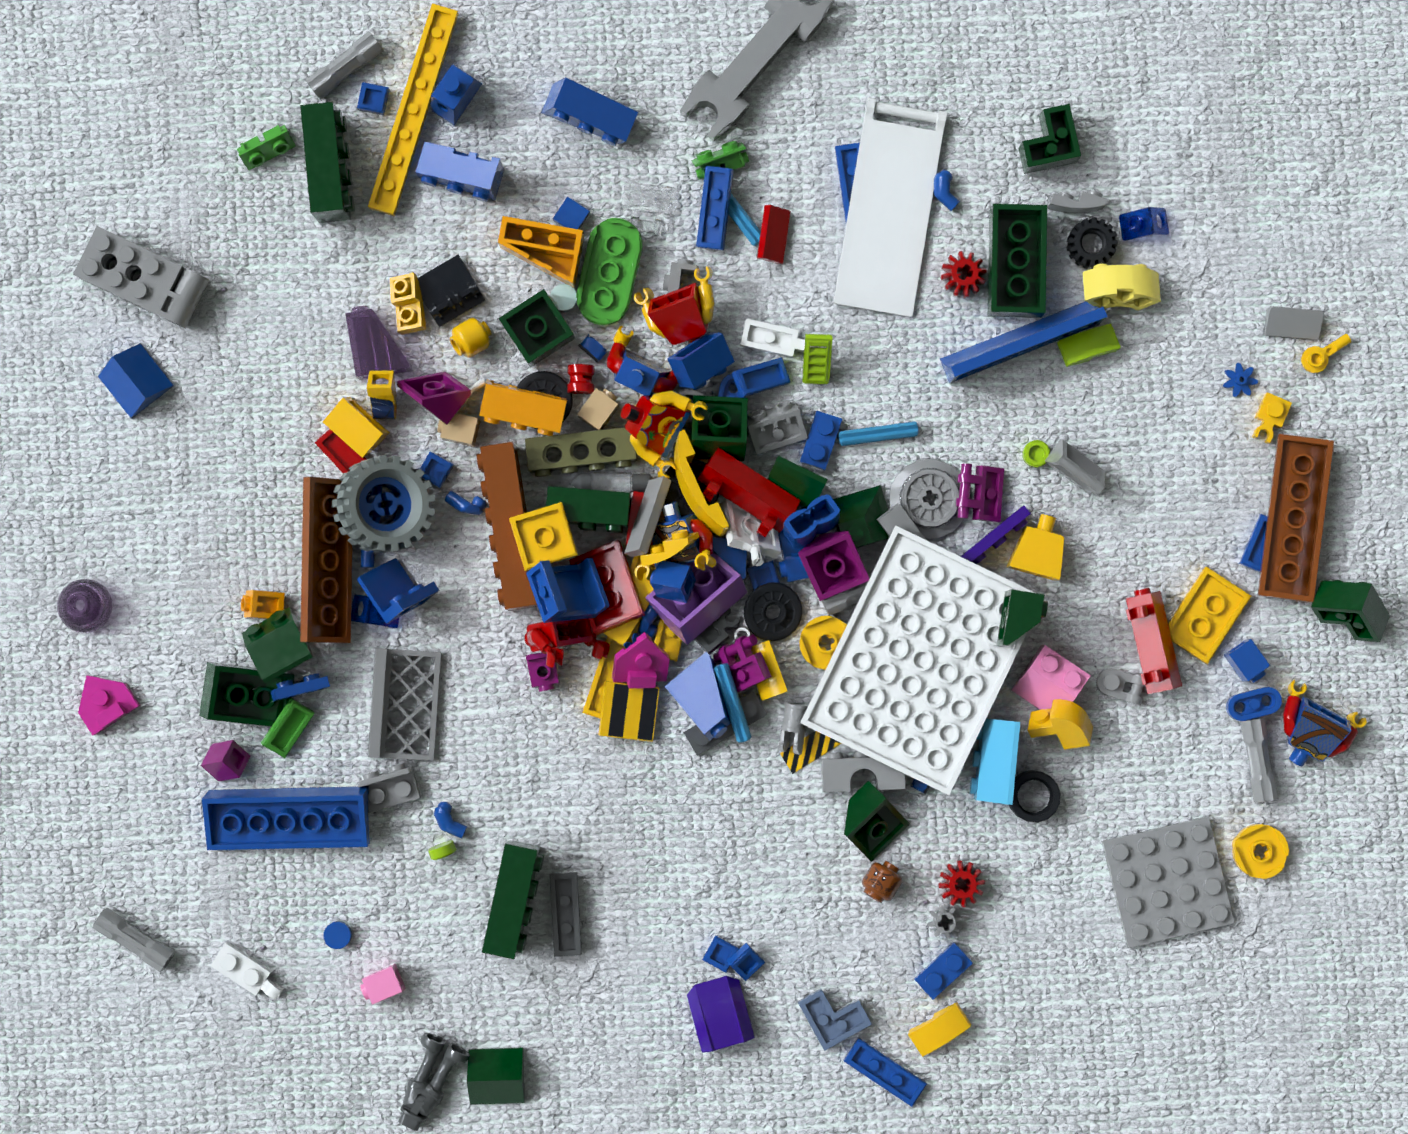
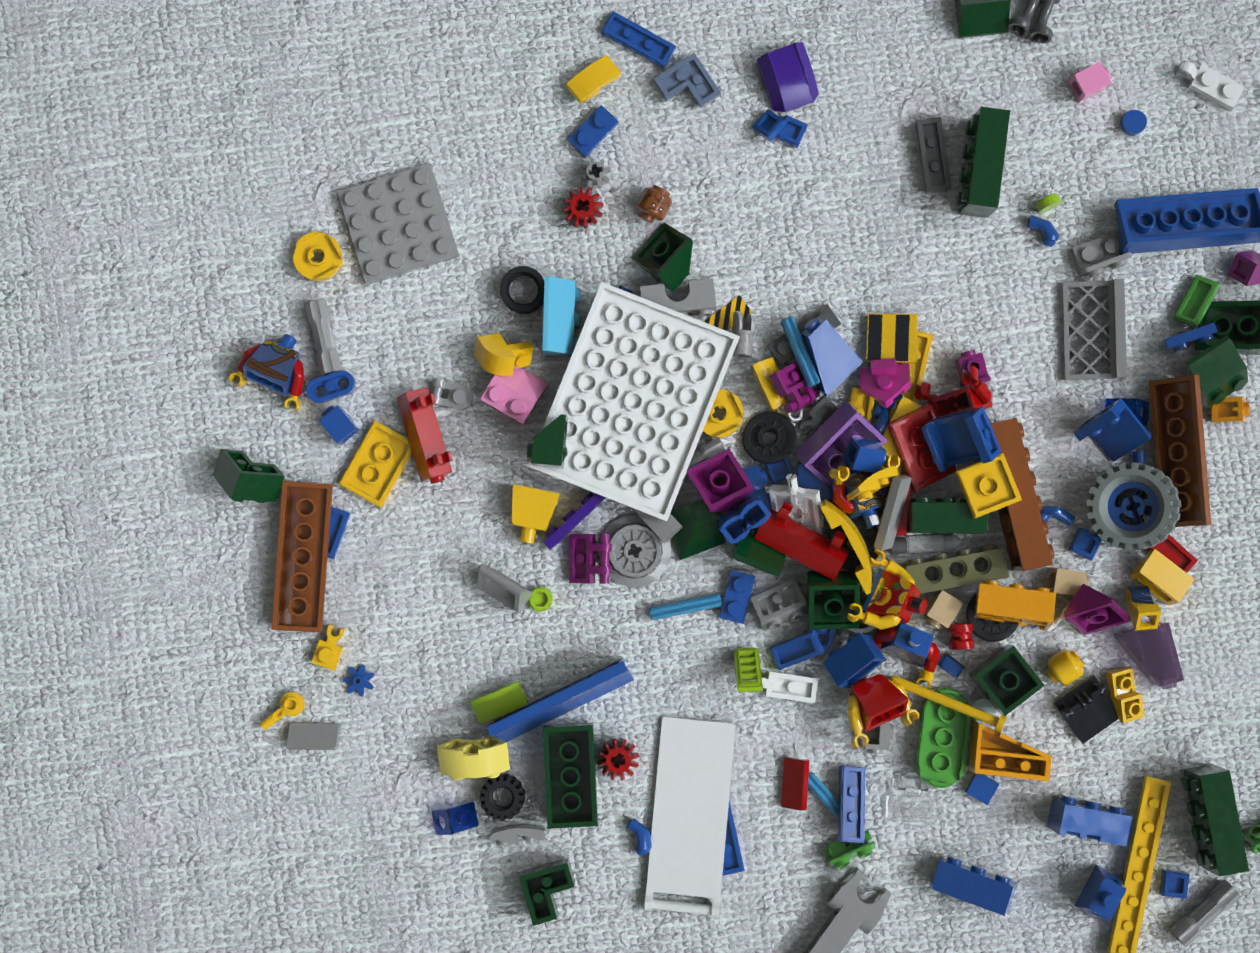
camera: 175 degrees right, 0 degrees up
(607, 311) = (951, 703): none -> yellow bar

